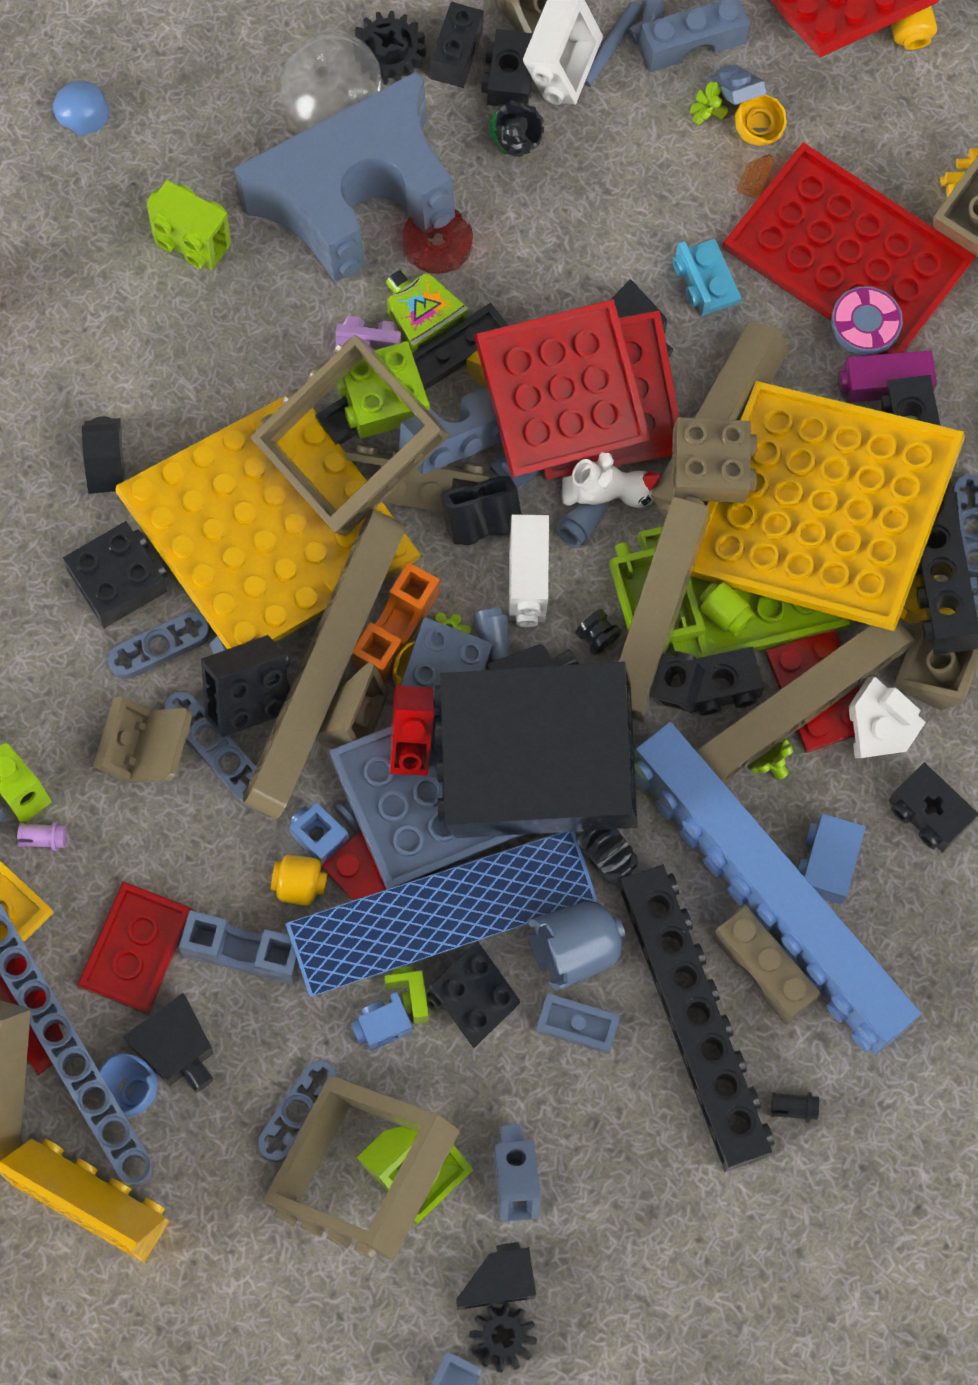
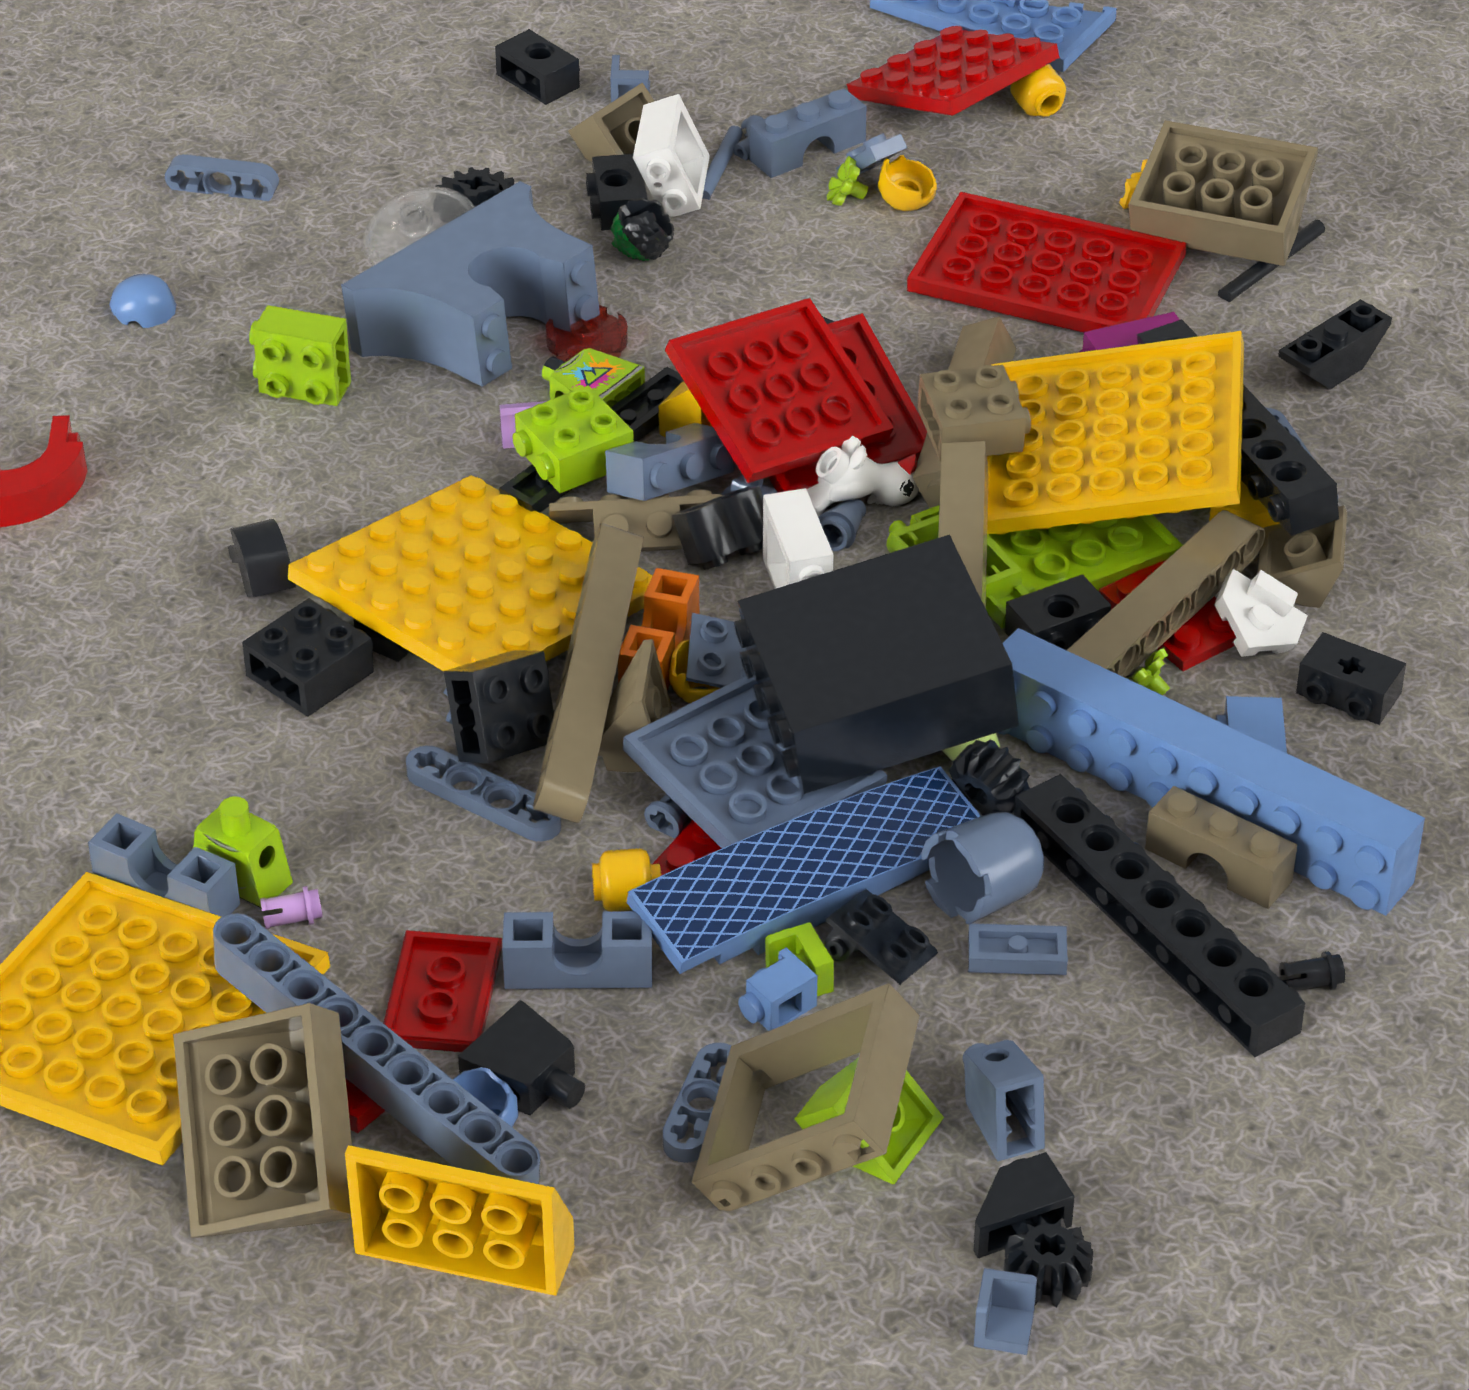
camera: 10 degrees left, 30 degrees down
(142, 742) = (387, 803): dark tan bracket -> none
(163, 630) = (385, 702): sand blue beam -> none
(317, 818) = (634, 827): medium blue brick -> none
(388, 477) = (601, 498): dark tan window -> none
(411, 730) = (718, 692): red slope -> none
(457, 44) = (553, 180): black brick -> none
(679, 697) = (1011, 603): black brick -> none
(707, 276) = (898, 312): medium azure bracket -> none
(726, 608) = (1039, 546): lime brick -> none
(756, 176) = (921, 227): clear orange slope -> none
(866, 320) = (1091, 303): tile -> none

